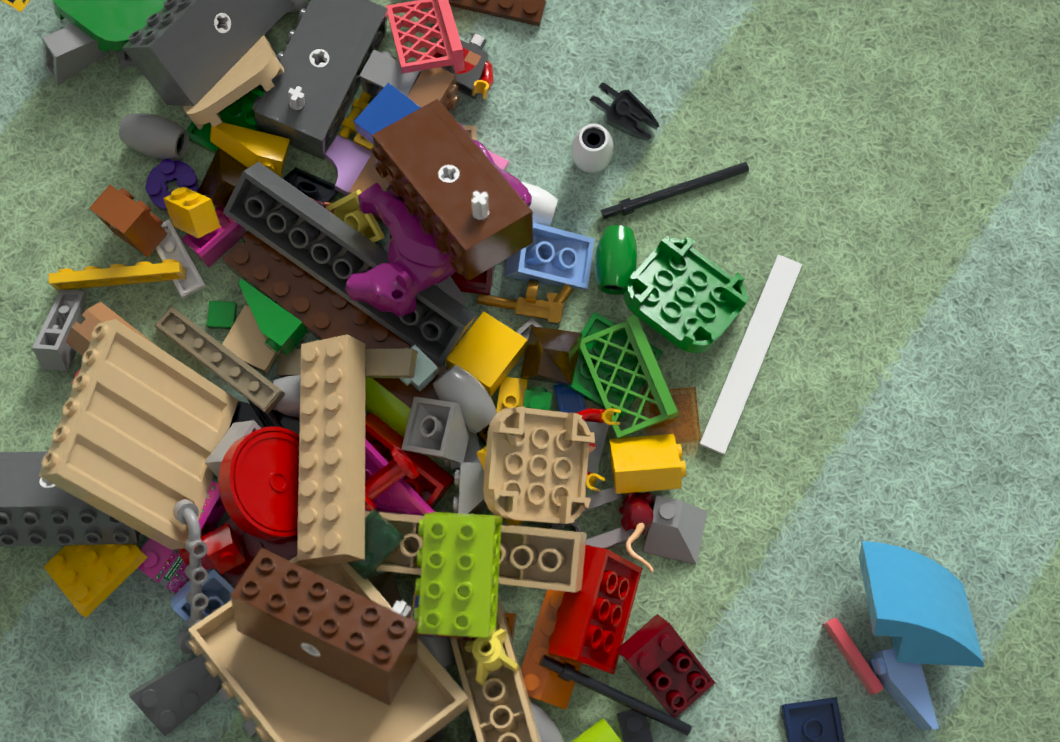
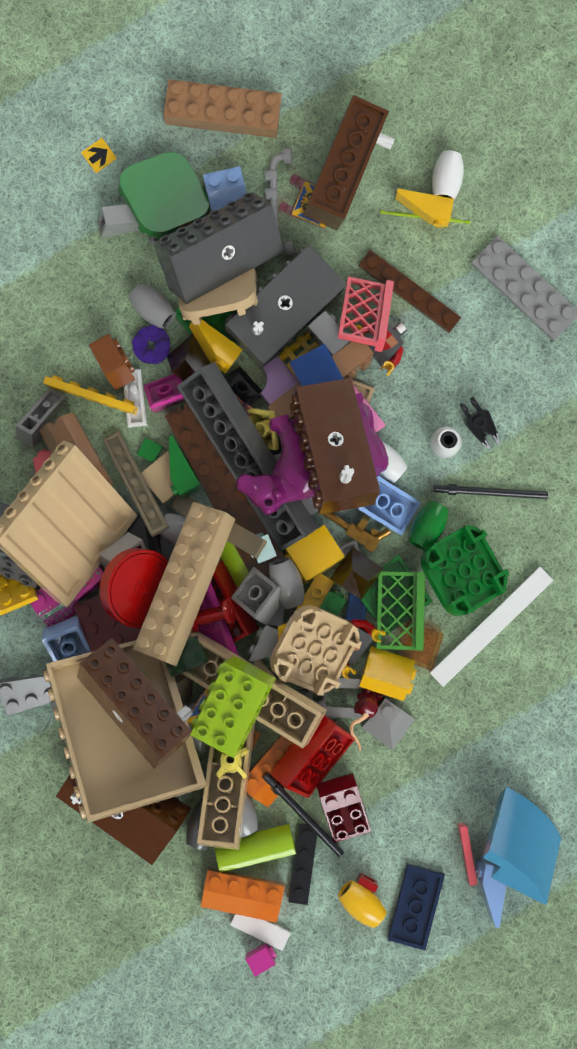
camera: 25 degrees right, 10 degrees up
(187, 514) = (73, 586): light grey bar -> none
(191, 212) = (156, 373): yellow brick -> none
(223, 550) = (84, 614): red arch -> none

